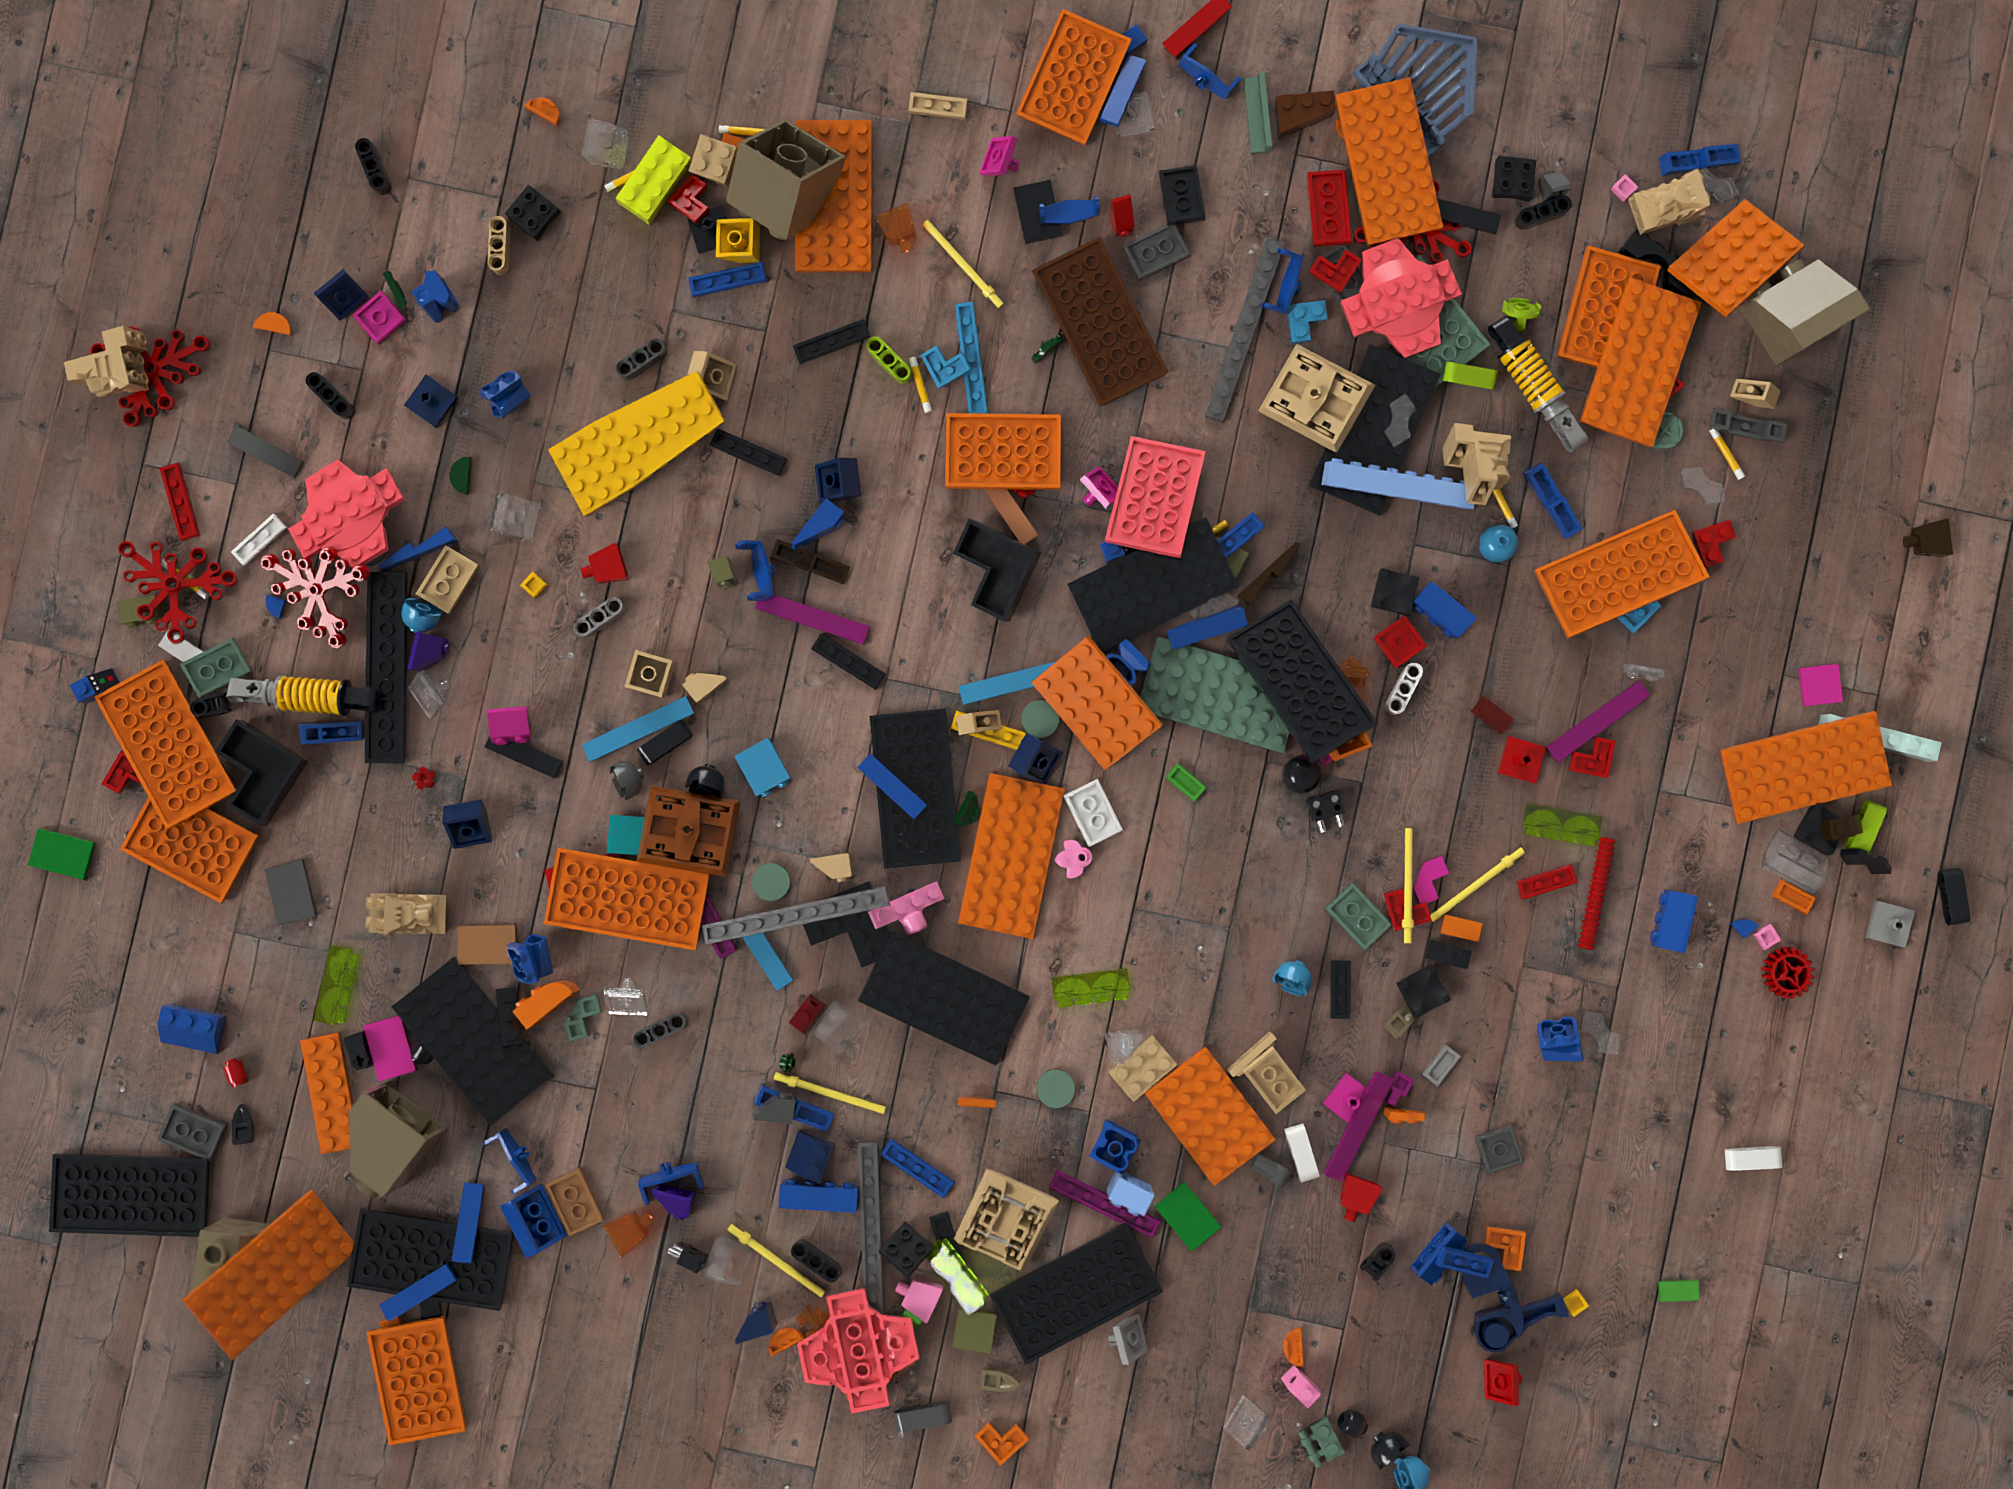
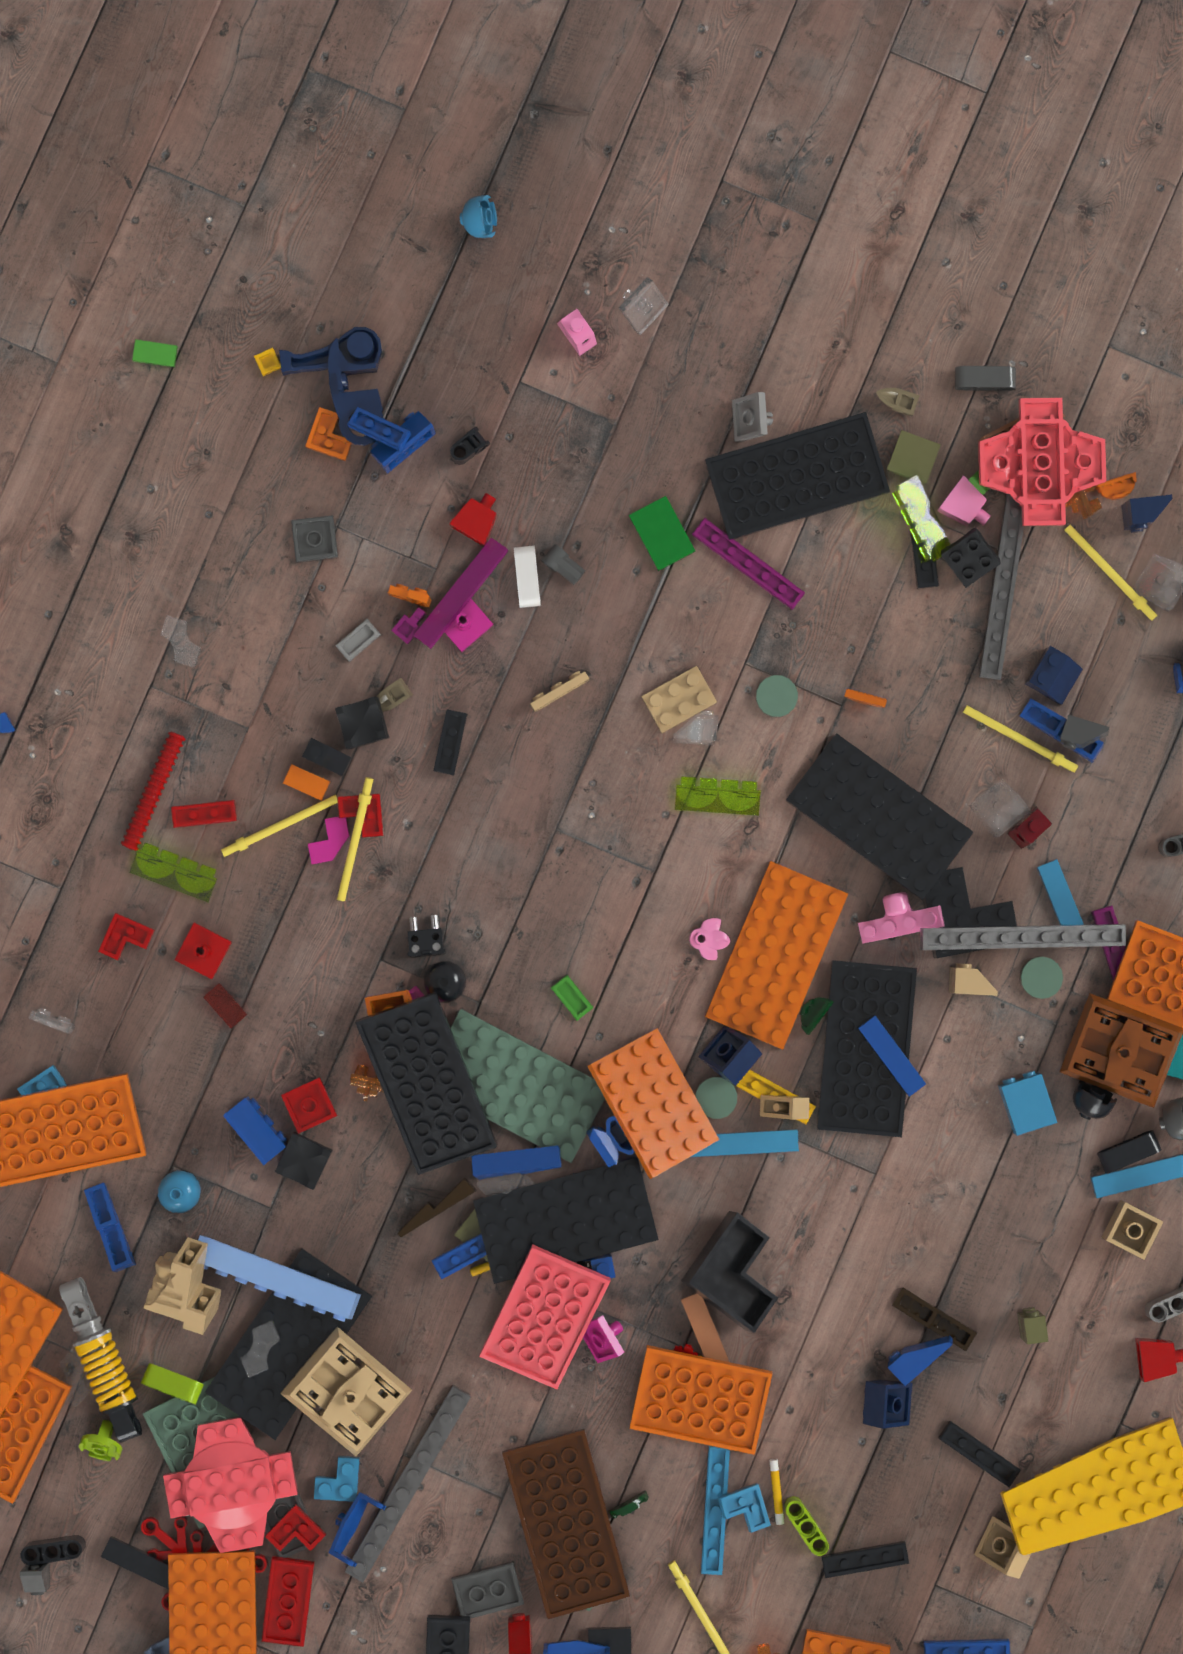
camera: 175 degrees left, 0 degrees up
(645, 350) = (1089, 1581): dark grey beam -> none
(703, 685) = (1076, 1206): tan slope -> none
(762, 570) = (989, 1320): blue piece -> none
(787, 1062) = (1060, 780): dark green plate -> none
(811, 1251) = (1057, 561): black beam -> none
(814, 618) = (943, 1257): magenta tile -> none
(818, 1196) = (1053, 631): blue brick -> none
(848, 661) = (913, 1201): black tile -> none
(917, 1168) = (941, 640): blue tile -> none
(1001, 1446) = (909, 331): orange plate -> none
(1006, 1216) = (859, 569): tan piece -> none
(1093, 813) = (678, 984): white tile -> none
(1115, 1147) = (726, 622): blue piece -> none
(1130, 1192) = (721, 571): light blue brick -> none
(1209, 1116) = (617, 635): orange plate -> none
(1274, 1080) = (542, 660): tan plate -> none
(1294, 977) = (498, 765): dark azure cylinder -> none
(1294, 1347) = (576, 374): orange tile -> none
(1326, 1438) = (561, 271): sand green plate -> none
(1352, 1423) = (531, 282): black head -> none
(1358, 916) = (414, 816): sand green tile -> none
(1387, 1448) = (499, 250): black cylinder -> none
(1411, 683) = (306, 1059): white beam -> none
(1501, 1381) = (364, 295): red tile -> none
(1505, 508) = (163, 1229): yellow bar -> none
(1514, 178) = (77, 1594): black brick -> none
(1560, 1040) = (226, 642): blue piece -> none
(1597, 721) = (112, 976): magenta tile -> none
(1673, 921) = (77, 745): blue slope -> none
(1753, 1158) = (45, 476): white beam -> none

